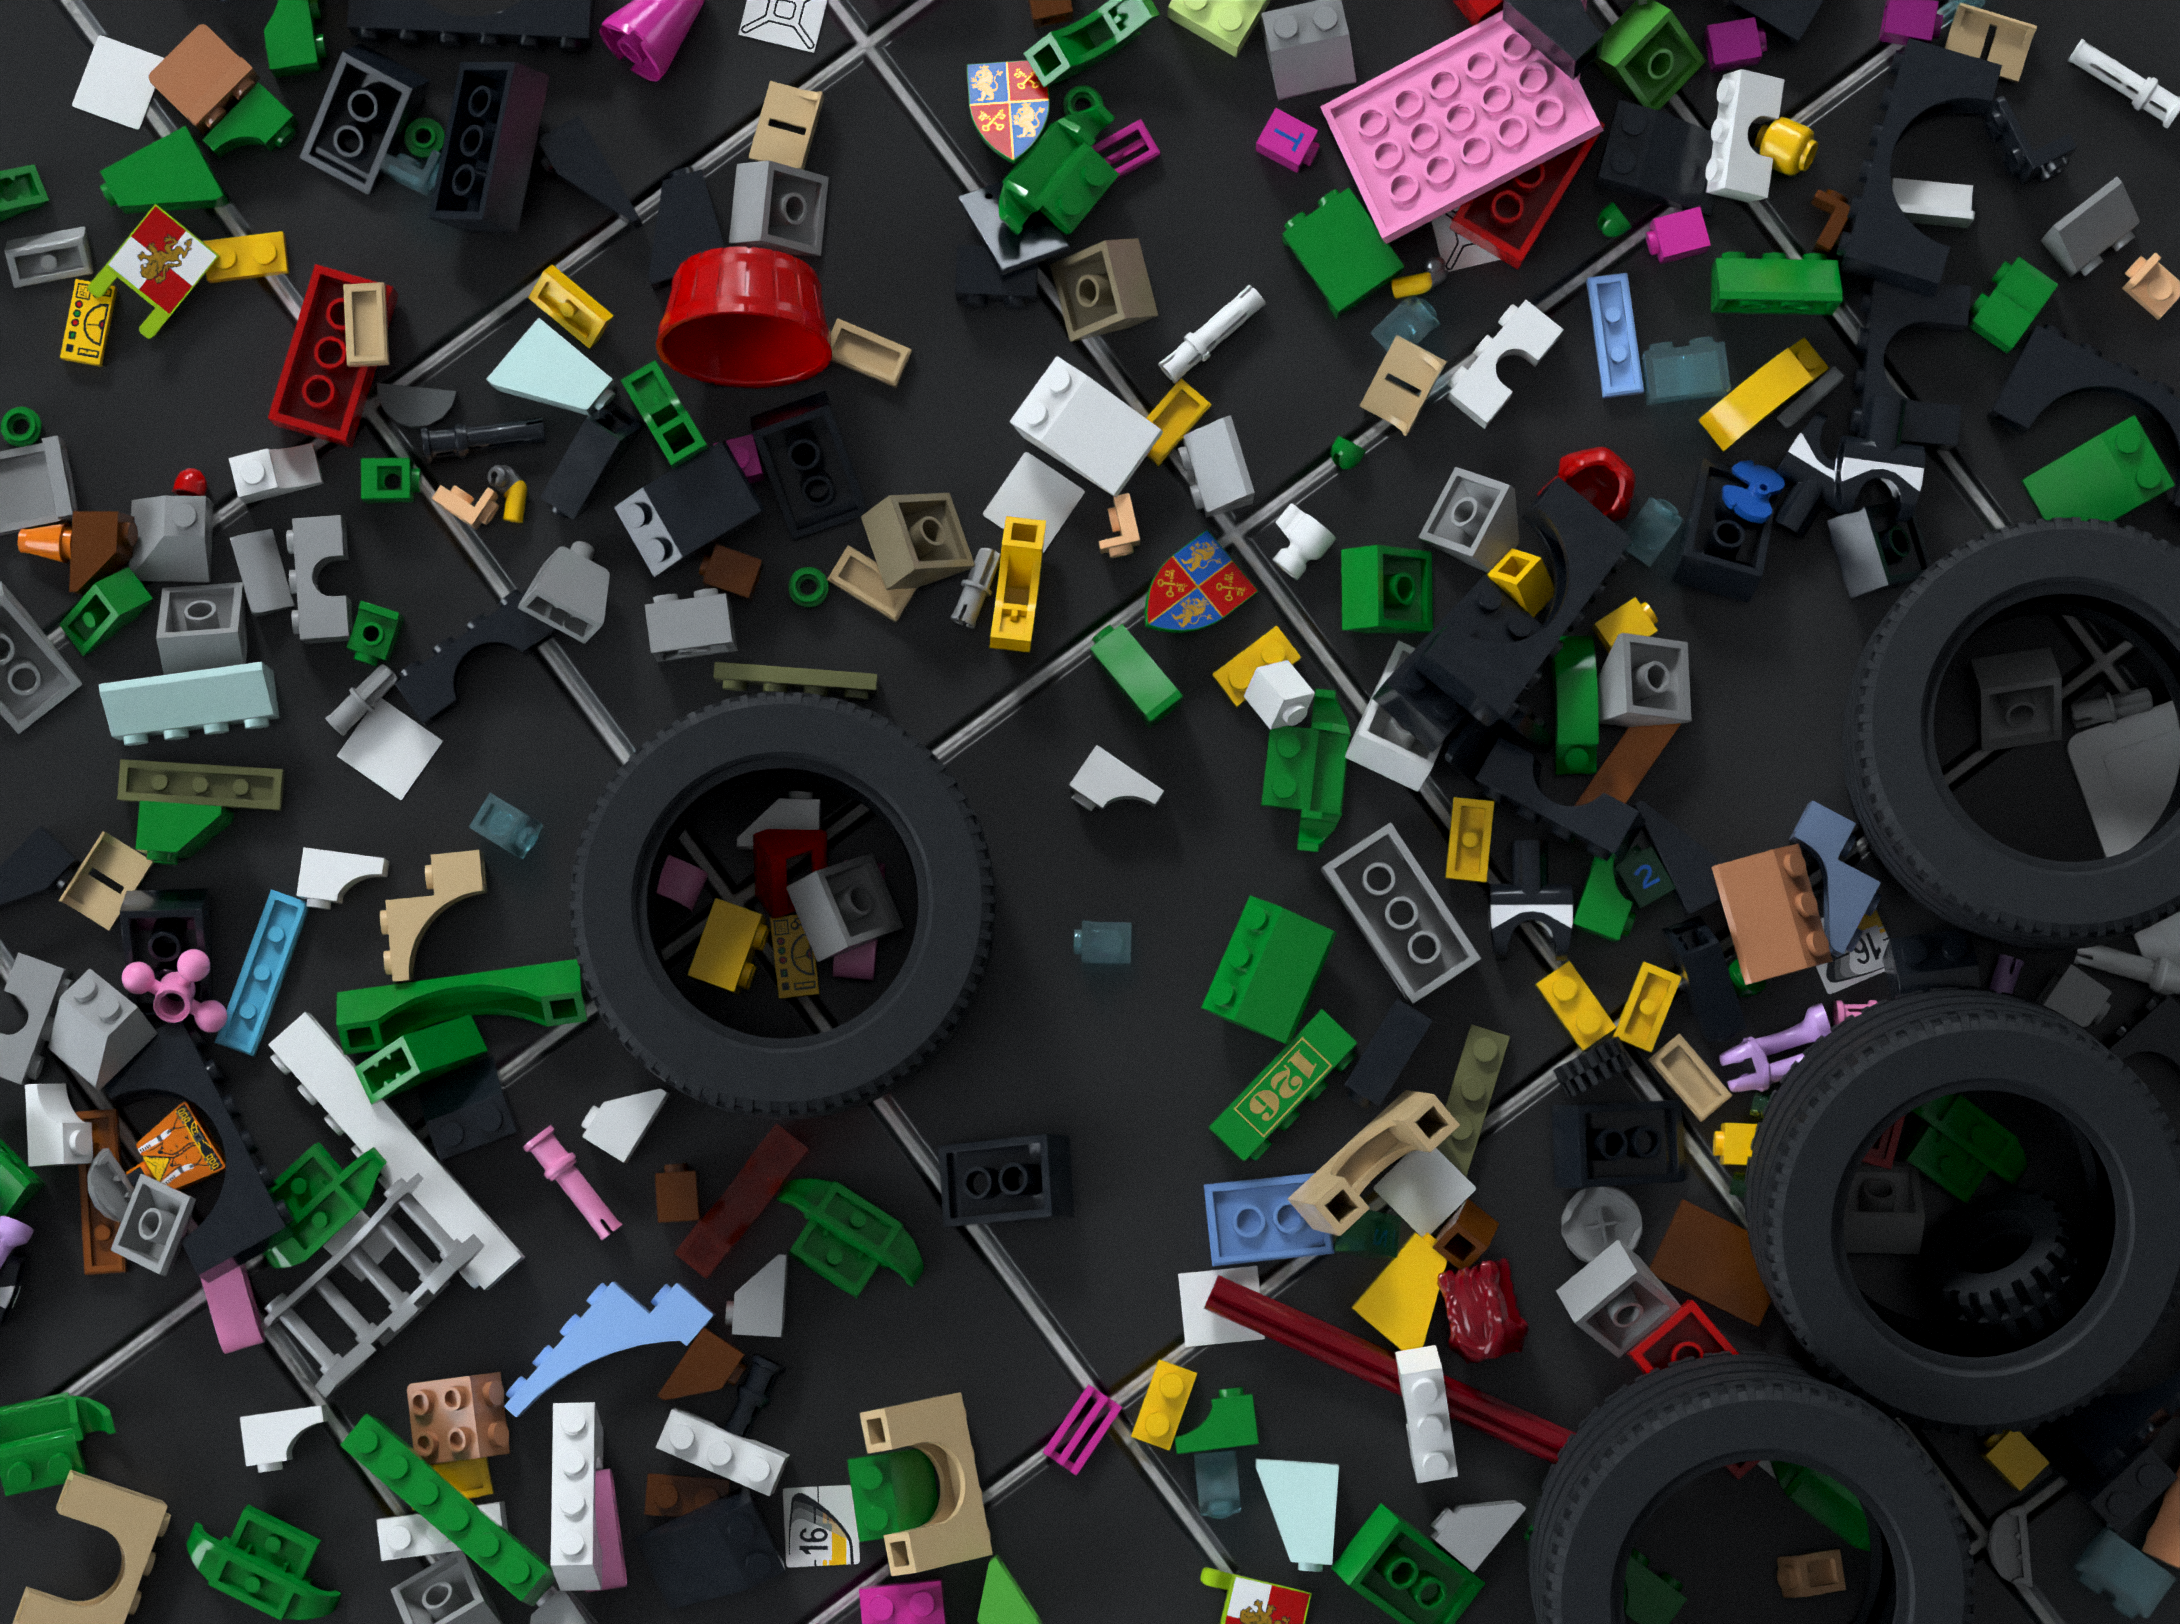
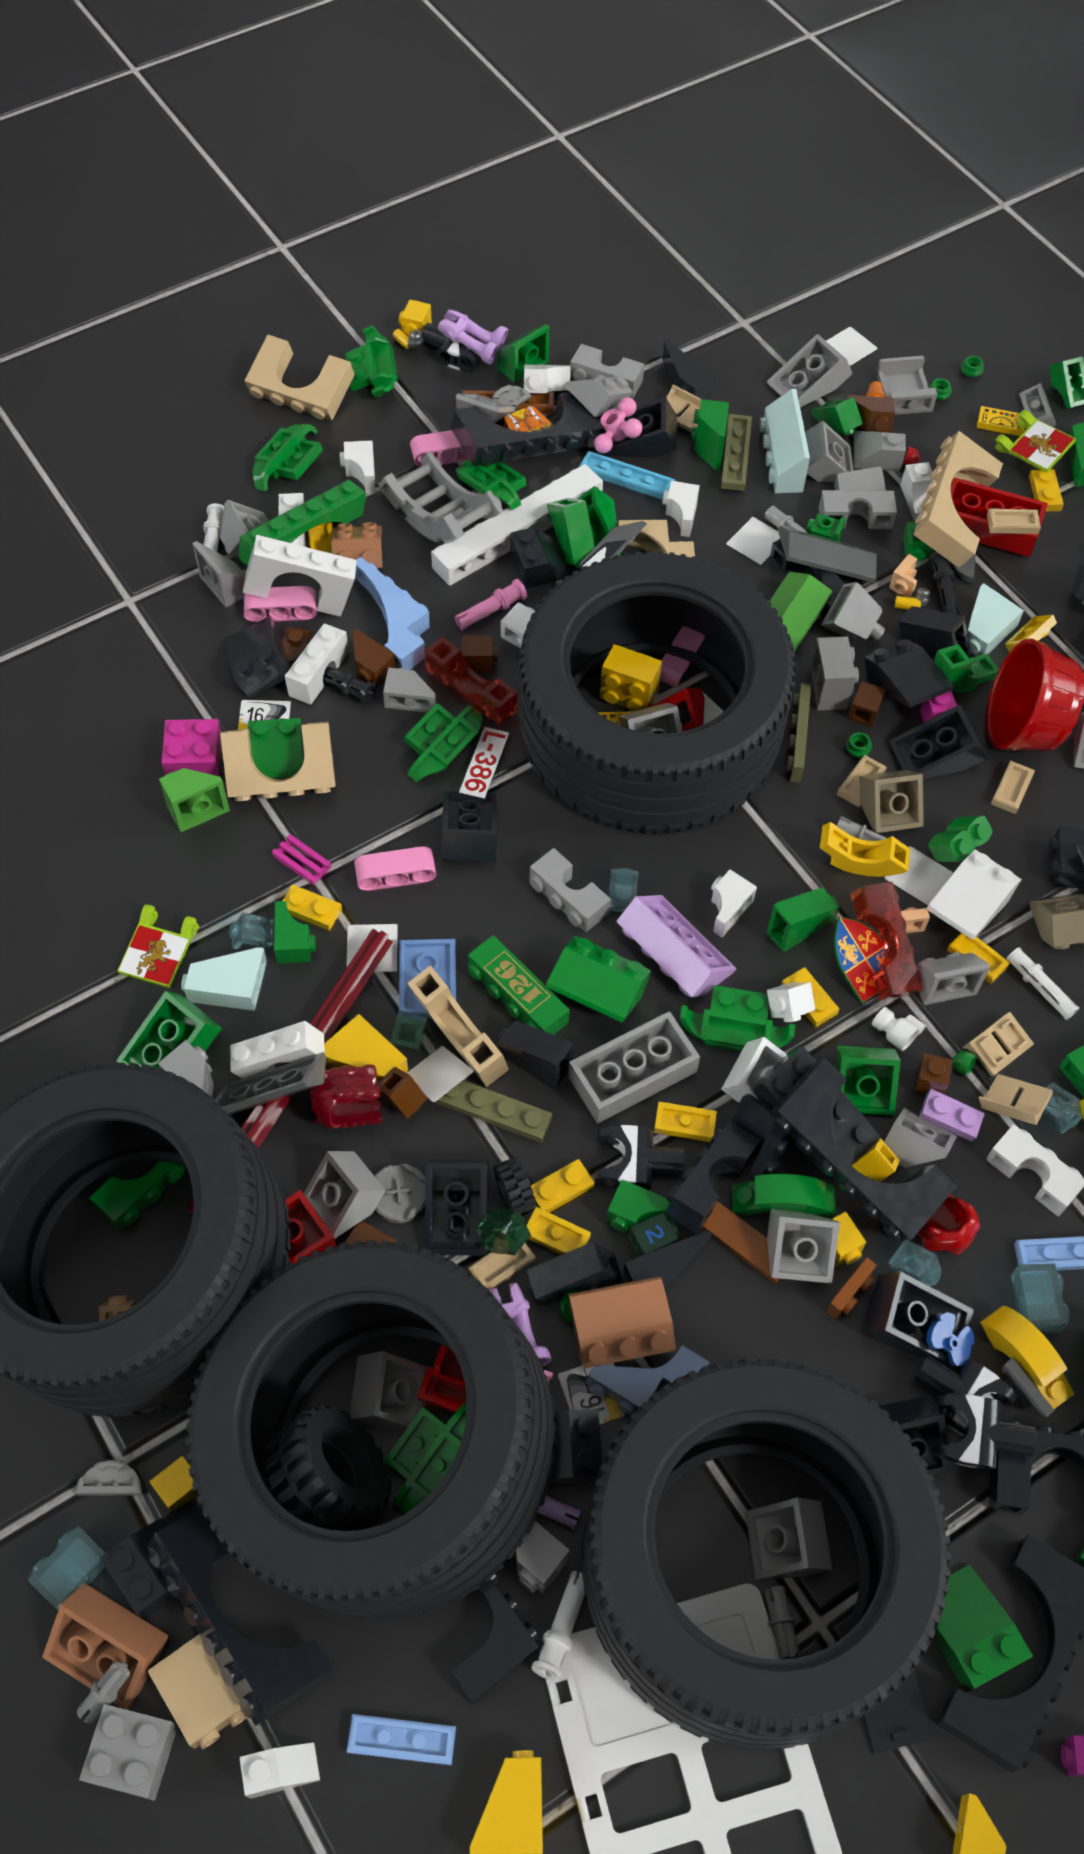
camera: 90 degrees right, 25 degrees down
(379, 449) = (939, 522): none -> tan arch
(441, 631) = (828, 554): none -> dark grey slope
(455, 990) = (613, 542): none -> dark grey sticker
(577, 700) = (799, 603): none -> bright green slope
(883, 1168) = (484, 762): none -> white sticker
(982, 440) = (960, 838): none -> green brick
(1090, 1051) = (581, 906): none -> light grey arch
(1093, 1285) = (395, 868): none -> bright pink beam
(1191, 860) = (674, 945): none -> lavender slope
(1223, 543) = (880, 908): none -> clear red arch
(1324, 416) = (989, 1050): none -> tan piece
(1377, 498) = (932, 1073): none -> reddish brown brick
(1429, 474) = (951, 1115): none -> lavender plate
(1485, 1418) = (273, 1084): none -> dark grey slope
(1658, 1077) = (503, 1231): none -> clear green brick
(1706, 624) = (845, 1299): none -> dark orange plate

